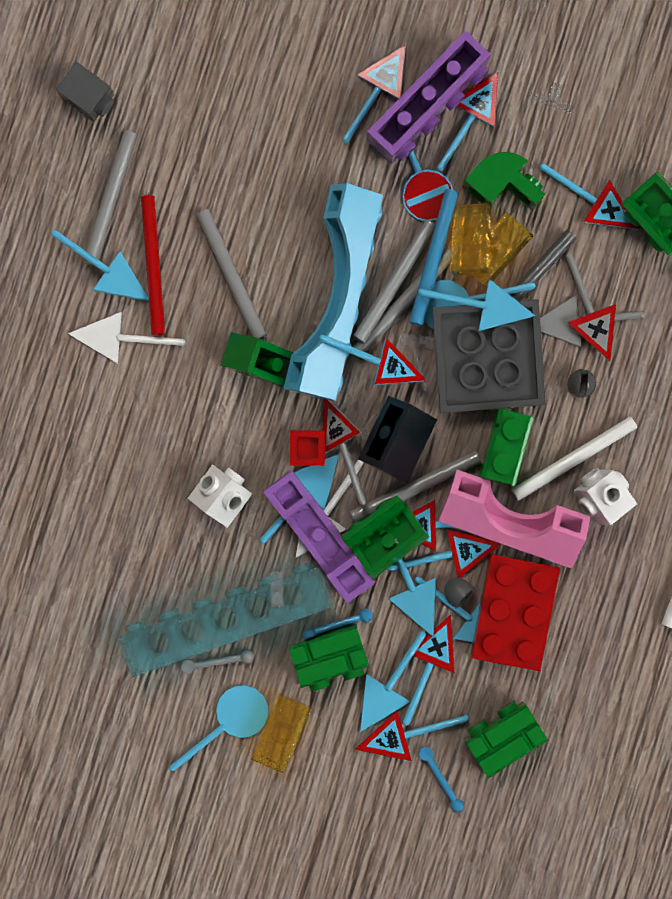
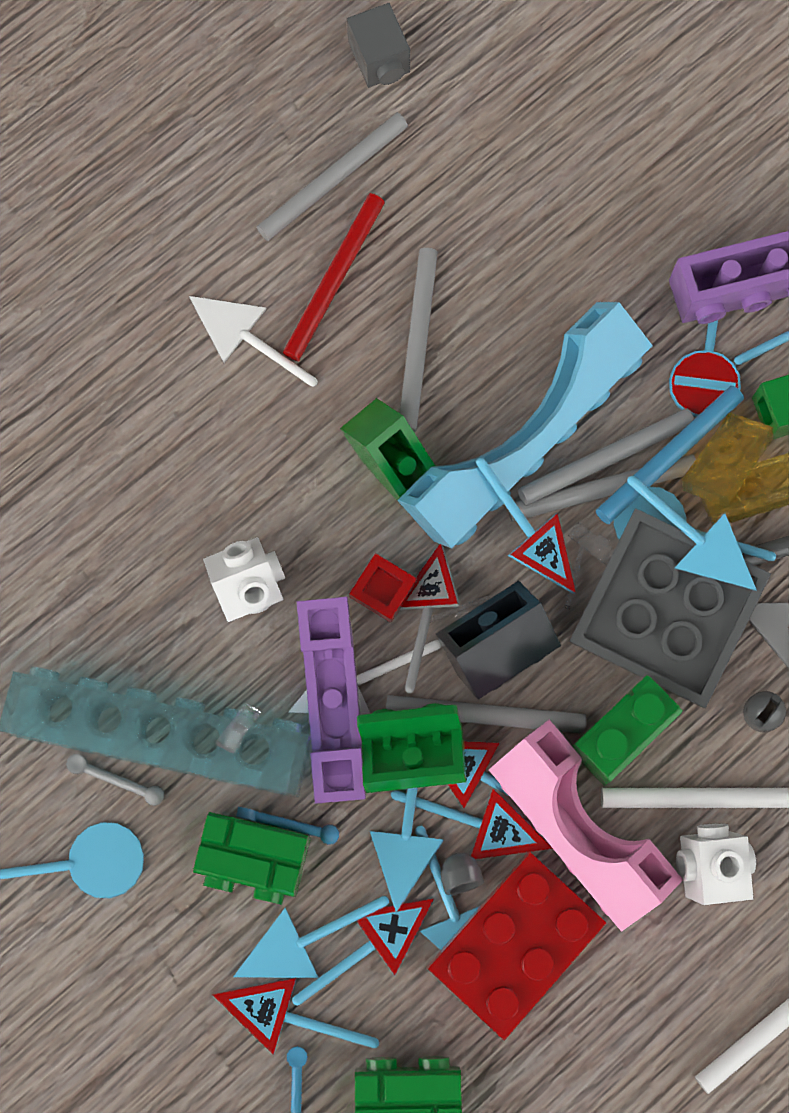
camera: 30 degrees right, 10 degrees down
(117, 278) = (284, 266): medium azure piece -> none
(281, 733) = (134, 916): clear yellow plate -> none
(317, 481) = (370, 635): medium azure piece -> none
(386, 76) = (732, 223): piece -> none

